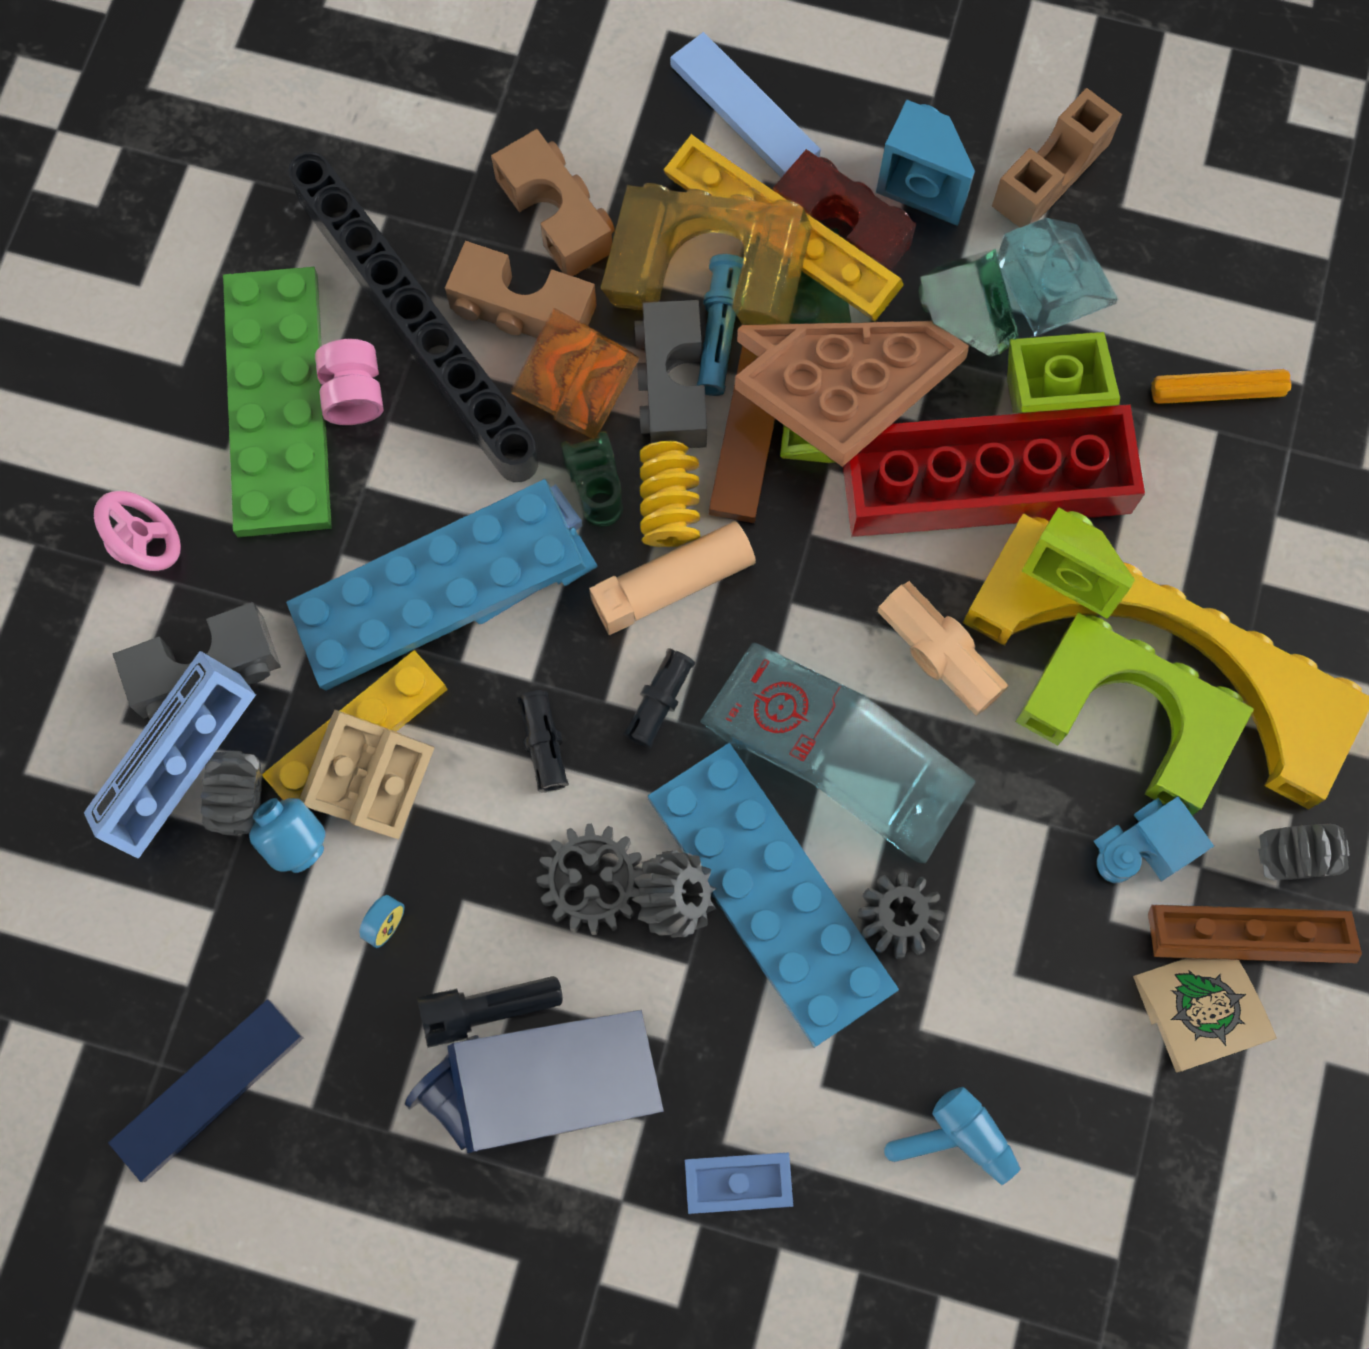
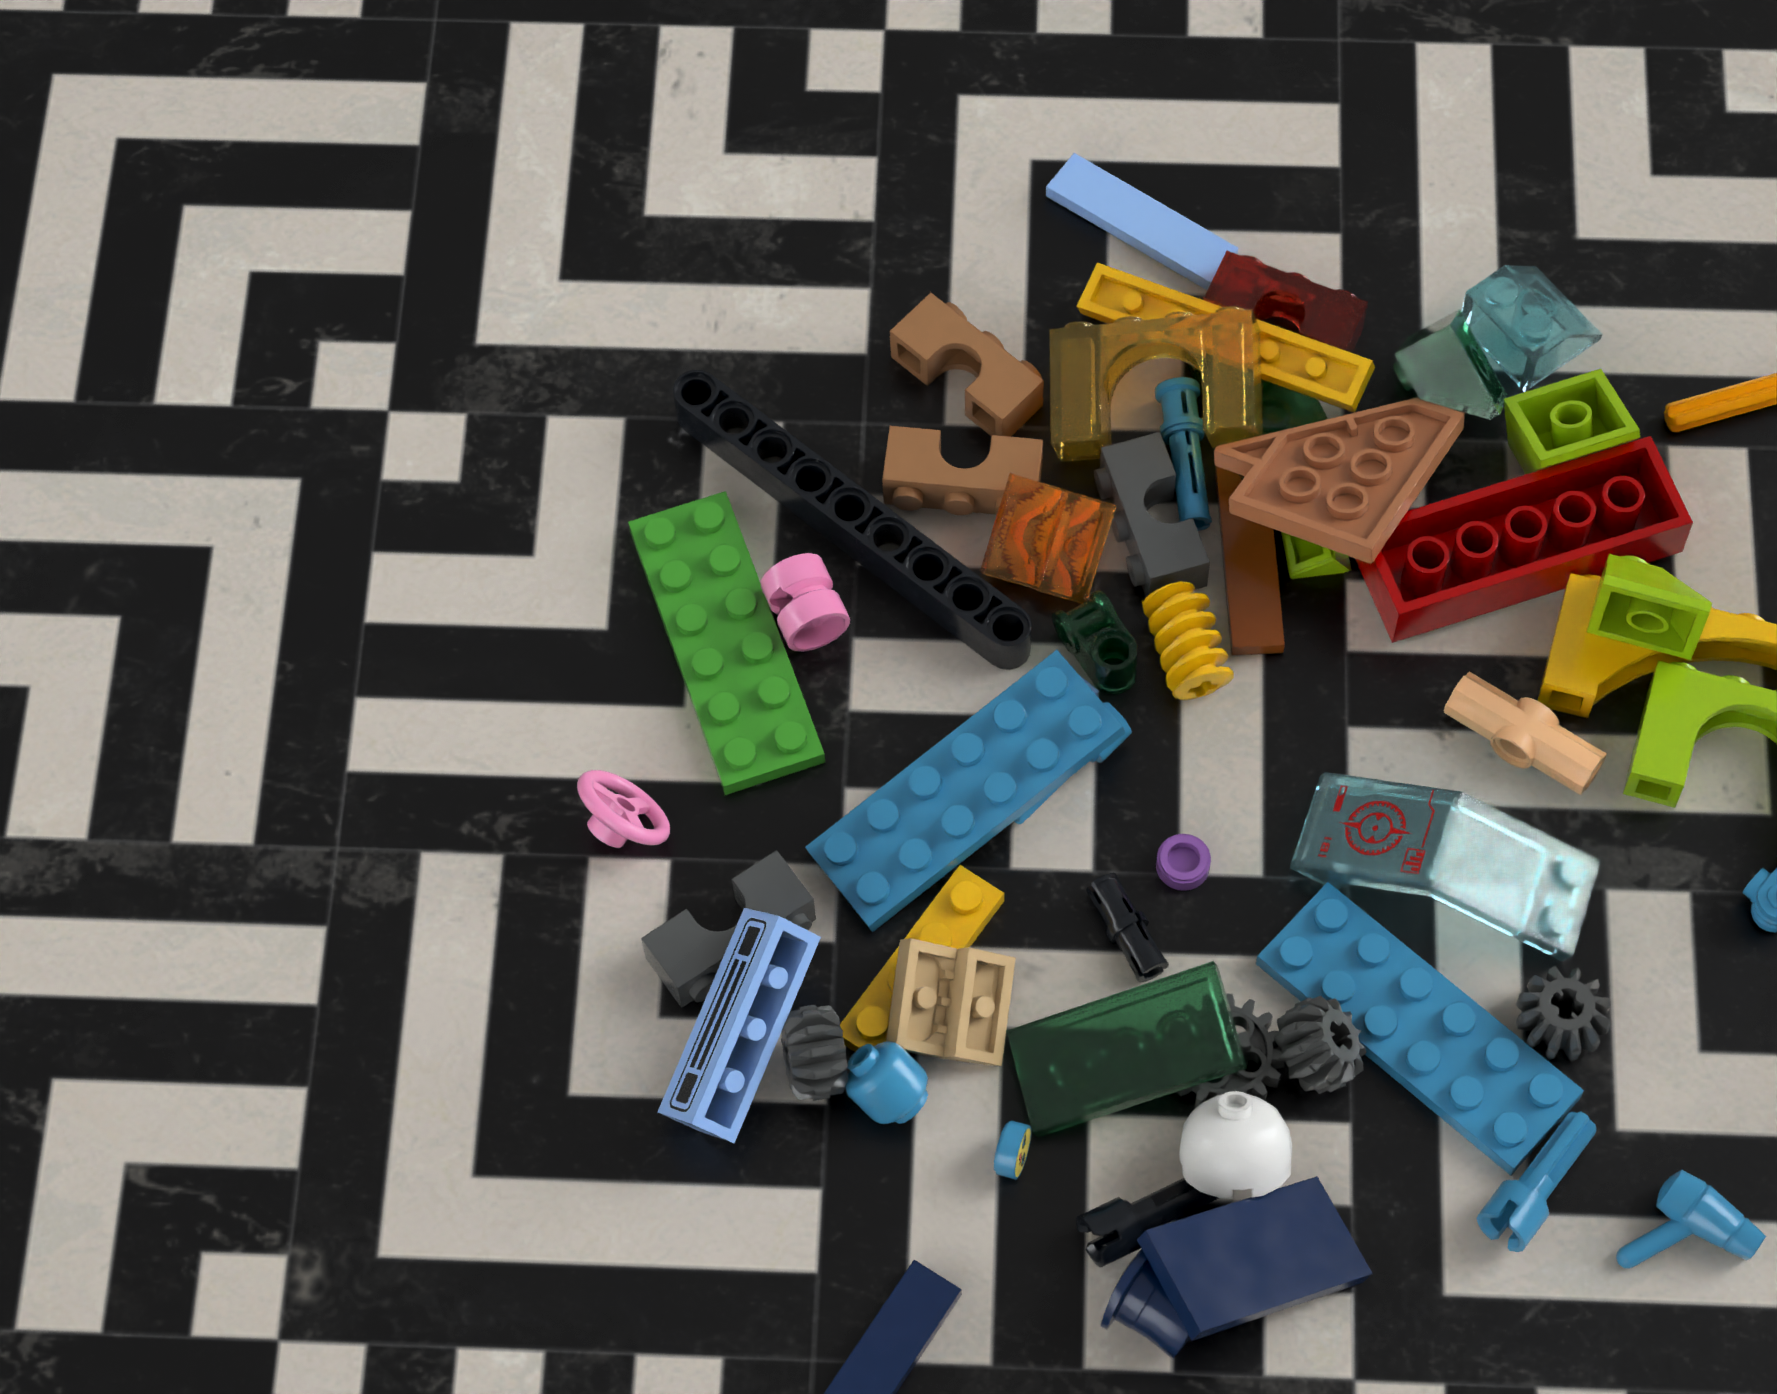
camera: 10 degrees left, 10 degrees down
(504, 856) = (1126, 1049): none -> clear green tile
(571, 972) = (1235, 1145): none -> white cylinder
(610, 692) = (1183, 862): none -> medium lavender tile
(659, 698) = (1238, 853): black pin -> none
(671, 577) = (1214, 726): light nougat piece -> none
(738, 1183) = (1474, 1325): medium blue plate -> none
(815, 1079) = (1523, 1202): none -> dark azure piece
(926, 164) = (1362, 239): dark azure slope -> none
(1072, 147) = (1490, 219): medium nougat arch -> none

